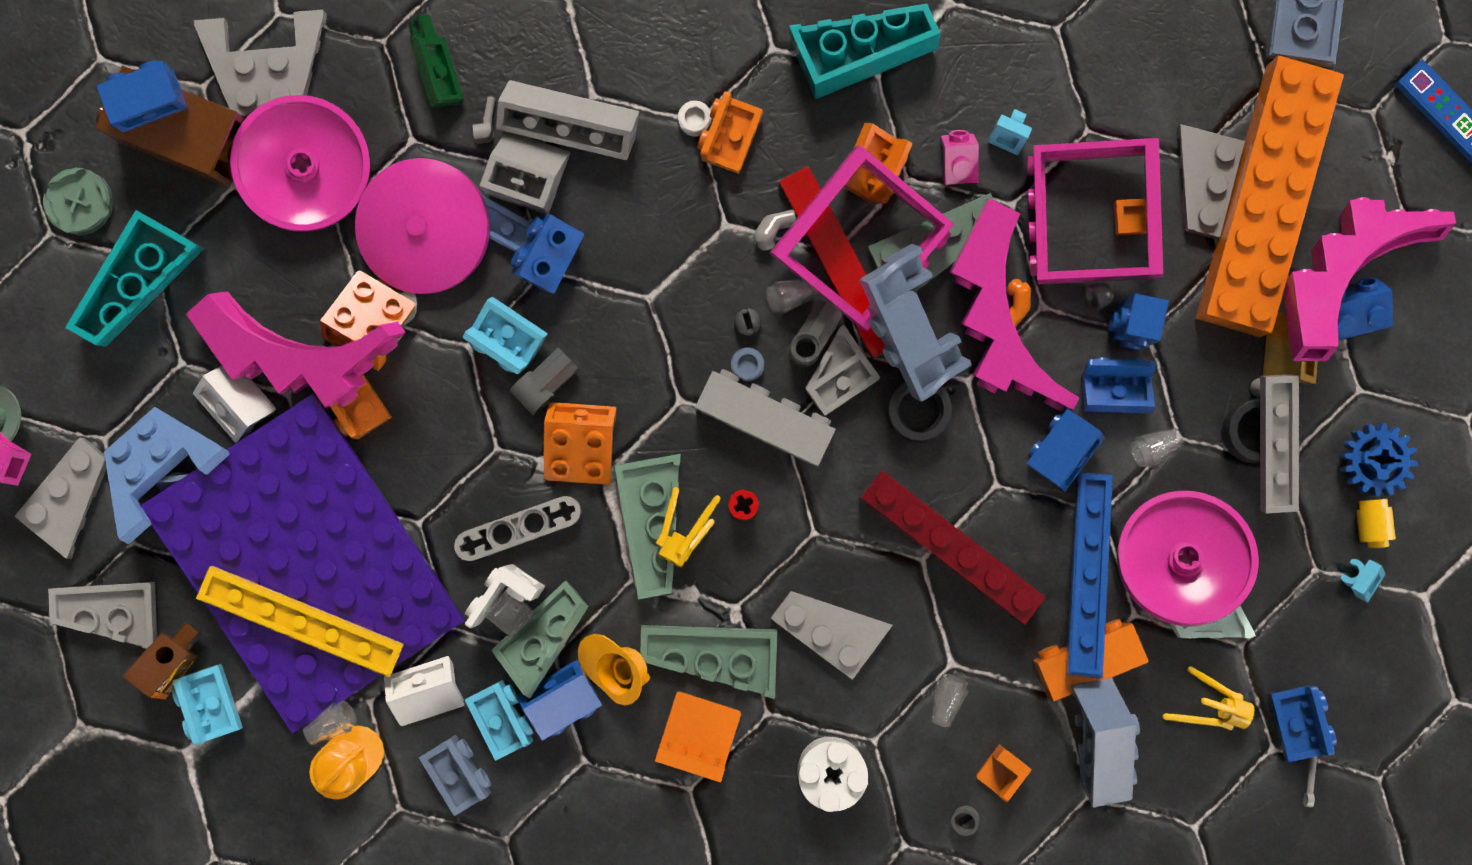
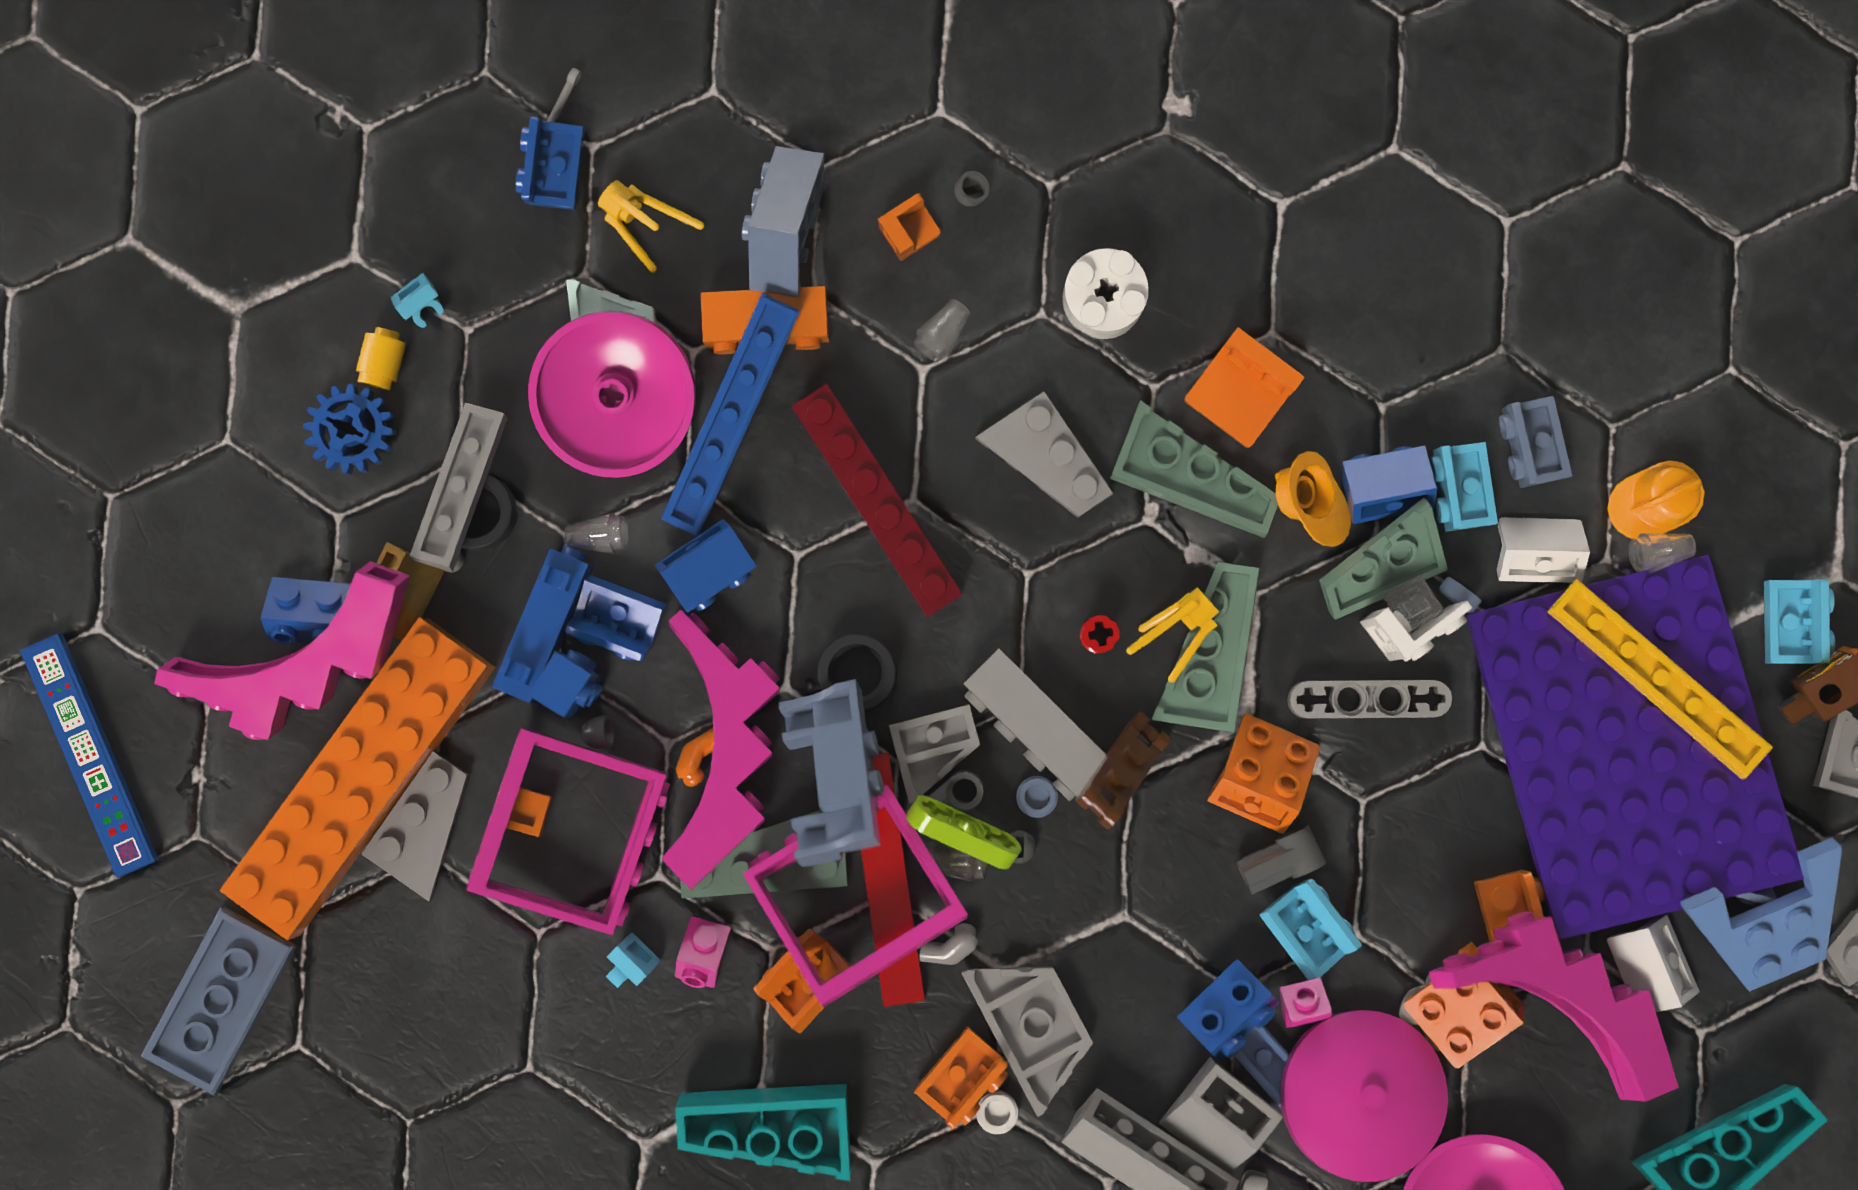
camera: 155 degrees left, 0 degrees up
(476, 633) = (1458, 593): none -> sand blue tile
(490, 278) = (1304, 1003): none -> dark pink bracket
(690, 404) = (1123, 770): none -> reddish brown plate
(691, 191) = (1032, 1025): none -> light grey wing
(796, 315) = (963, 832): none -> lime beam
(1174, 365) = (543, 622): none -> blue brick

